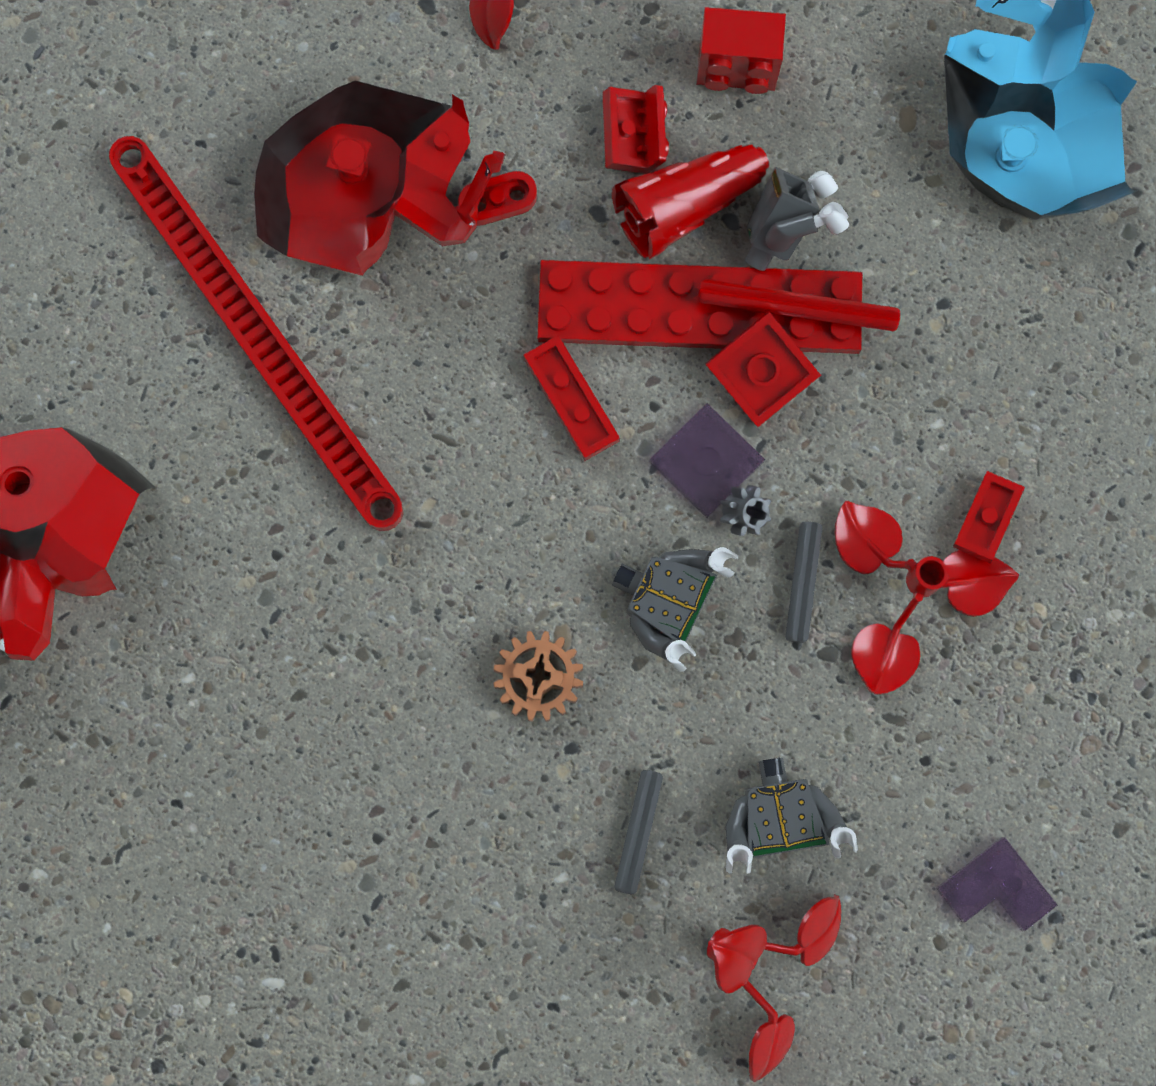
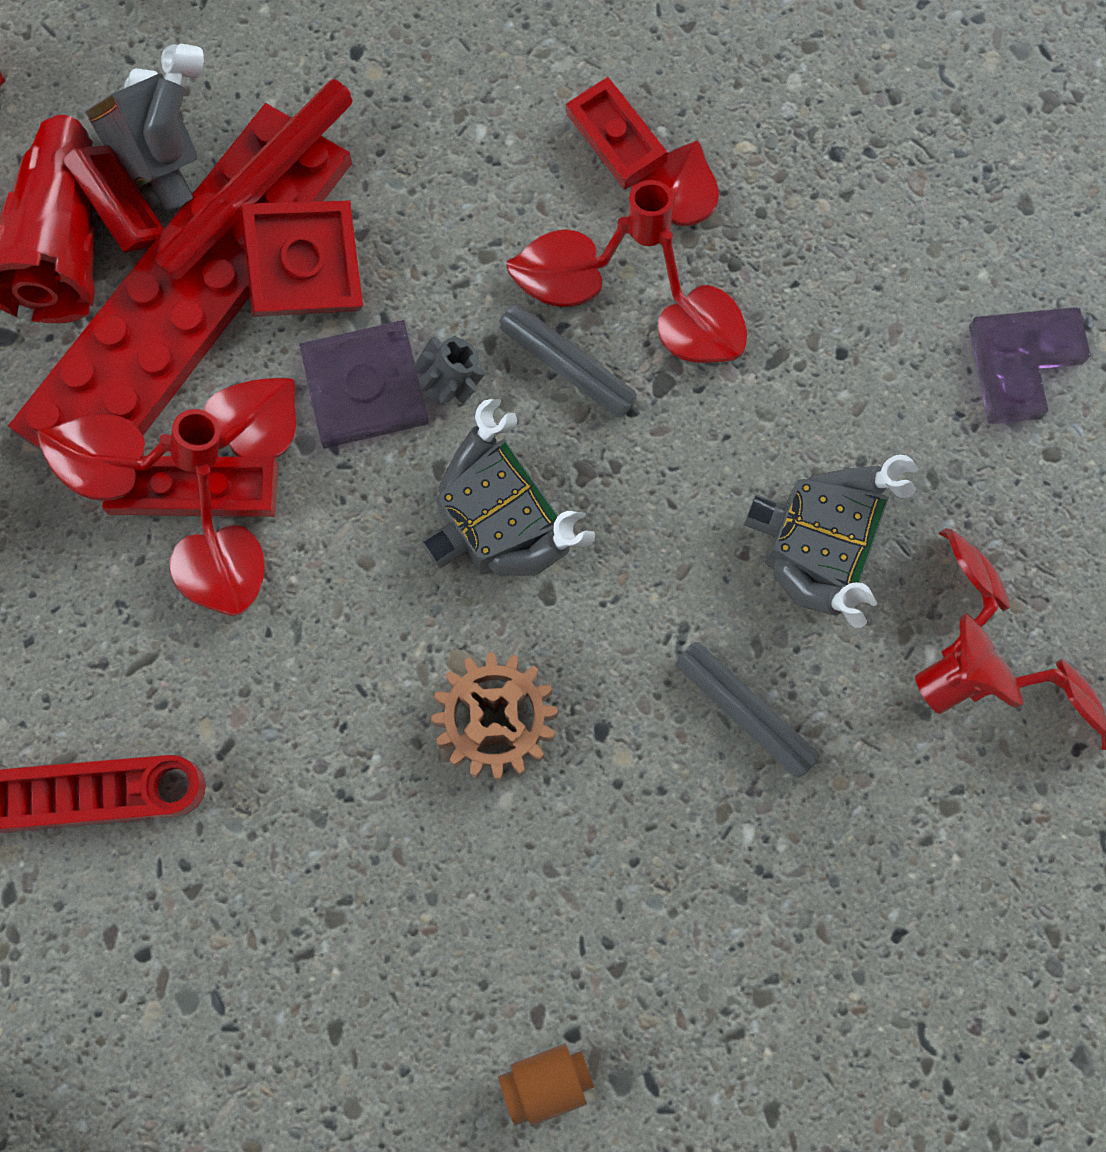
camera: 60 degrees left, 5 degrees down
(339, 837) = (545, 1085): none -> dark orange brick
(638, 407) = (102, 451): none -> red plant
(729, 225) = (114, 196): none -> red tile

